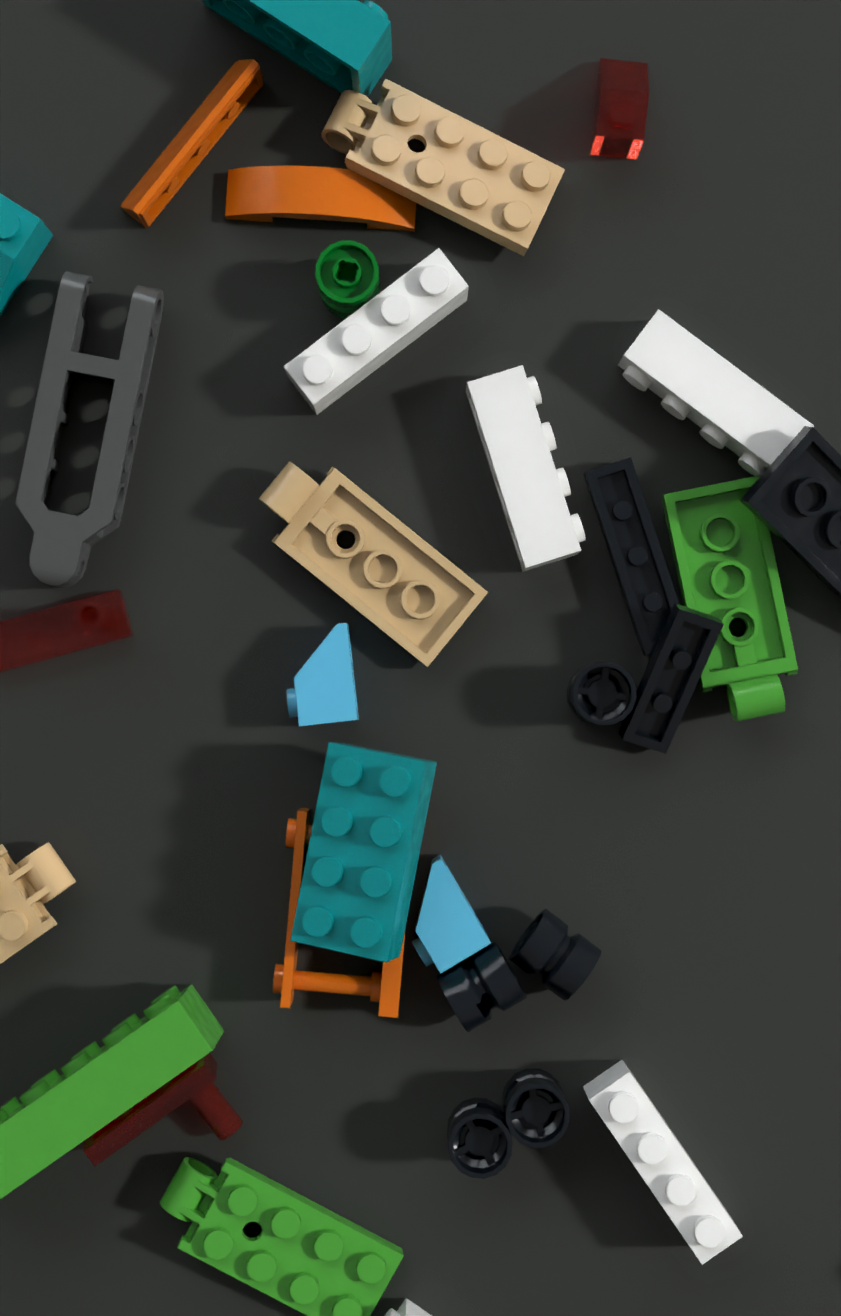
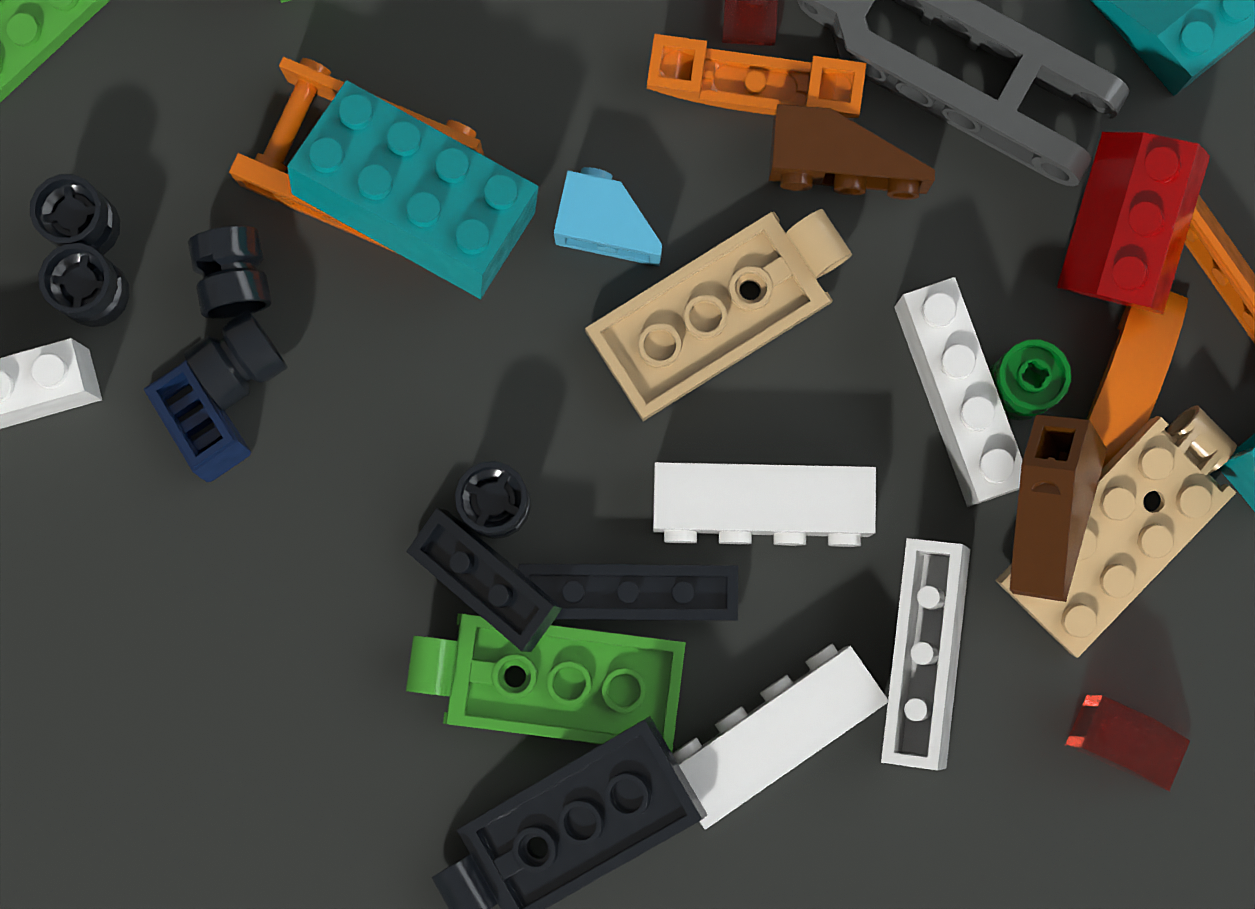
camera: 110 degrees right, 5 degrees down
(160, 593) = (752, 81): none -> orange slope
(184, 232) = (1134, 219): none -> red slope
(201, 505) = (831, 150): none -> reddish brown slope
(446, 922) = (312, 261): medium azure slope -> none
(454, 221) = (1054, 504): none -> reddish brown slope
(609, 291) = (926, 654): none -> white brick
(641, 965) = (217, 448): none -> dark blue slope

